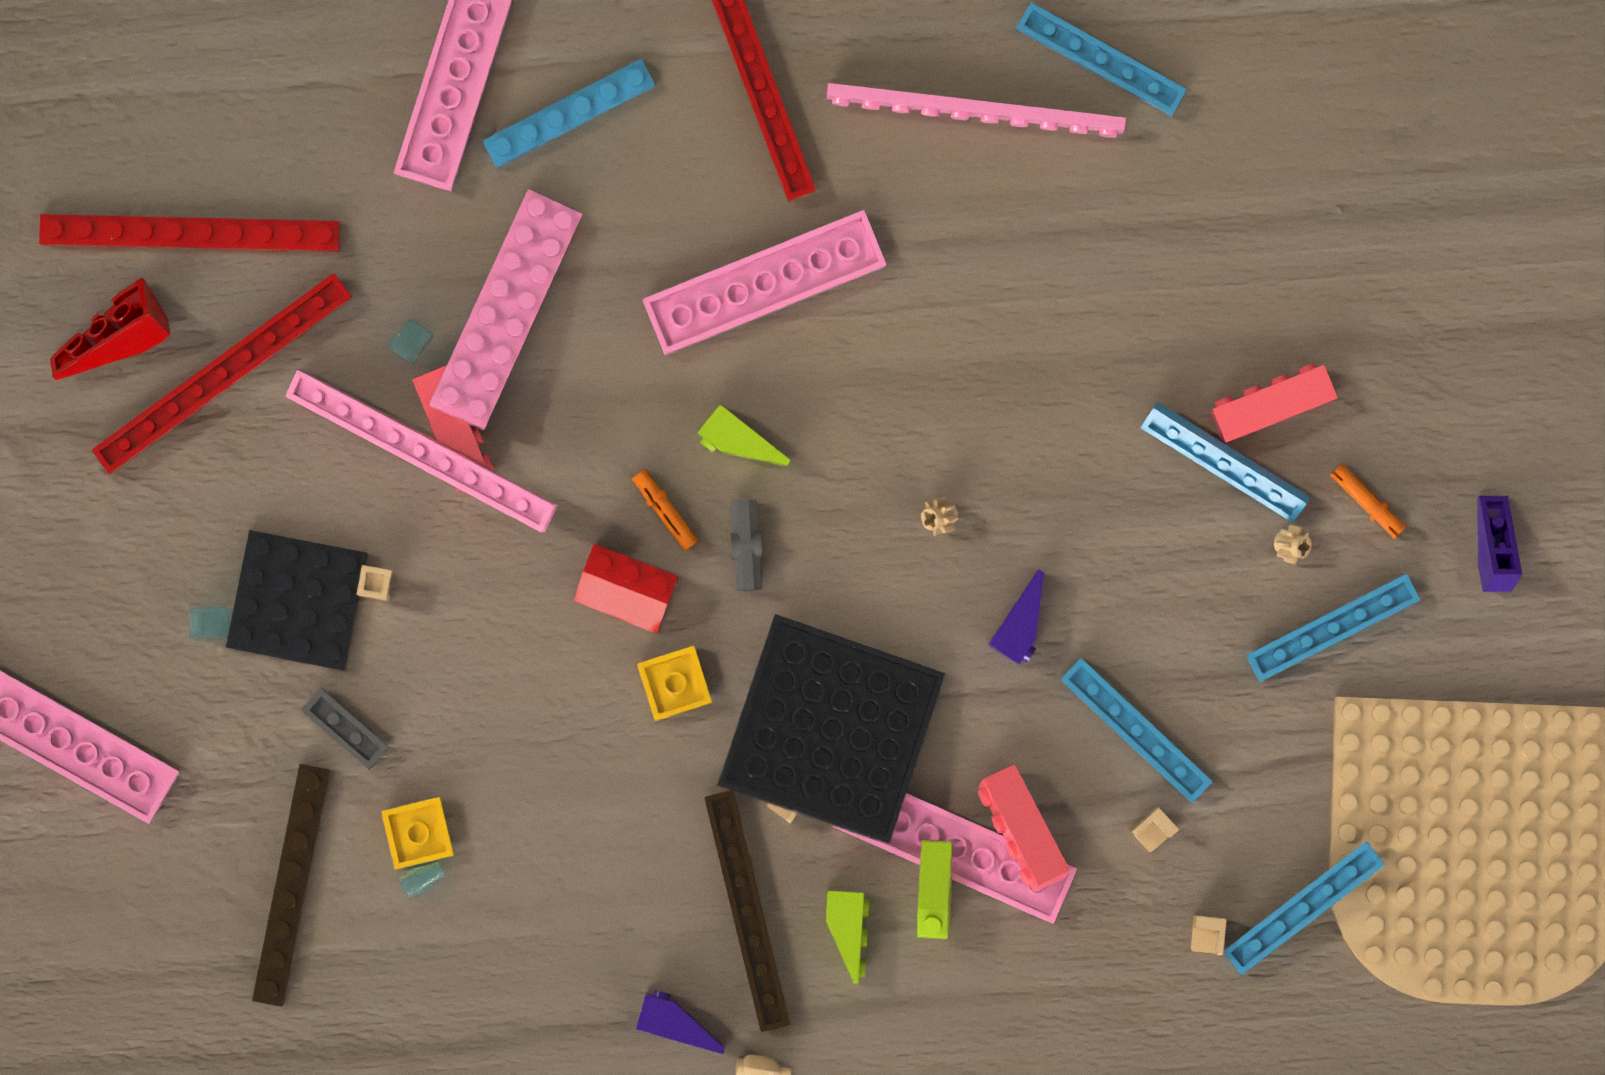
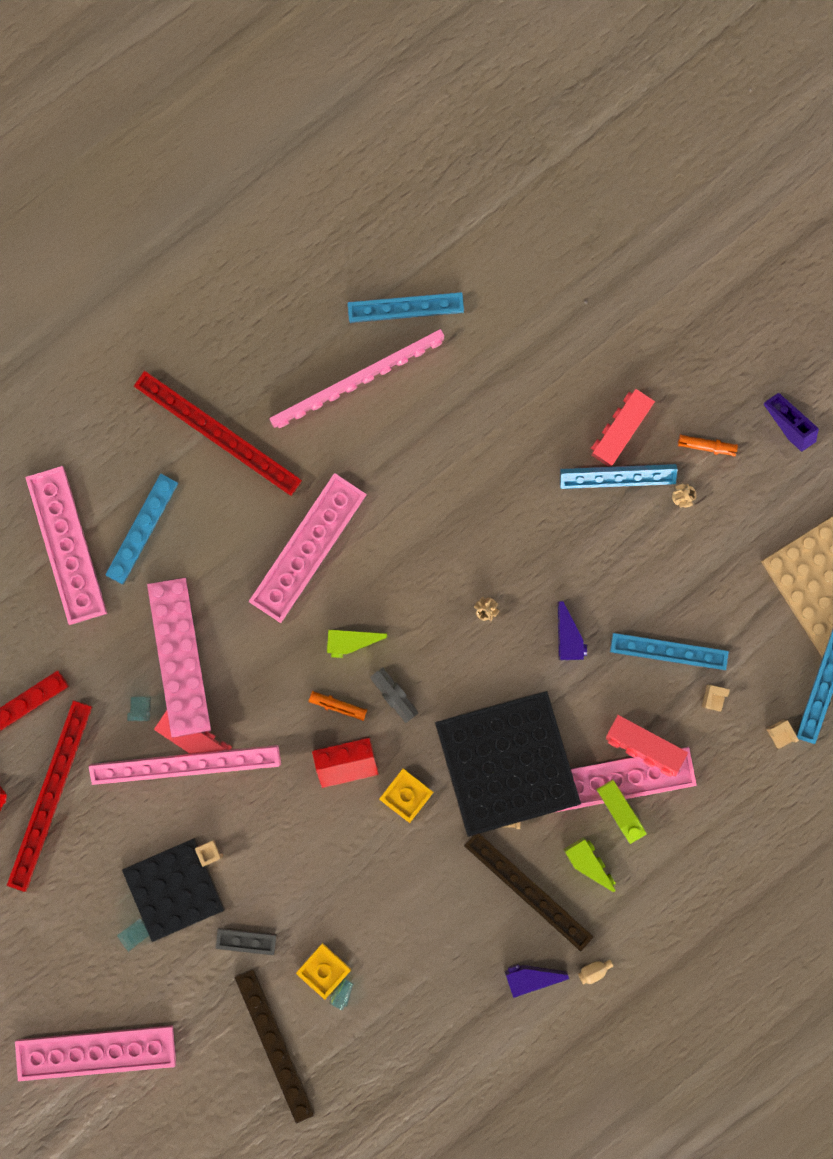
camera: 30 degrees left, 0 degrees up
(1332, 627) = (735, 525): dark azure plate -> none

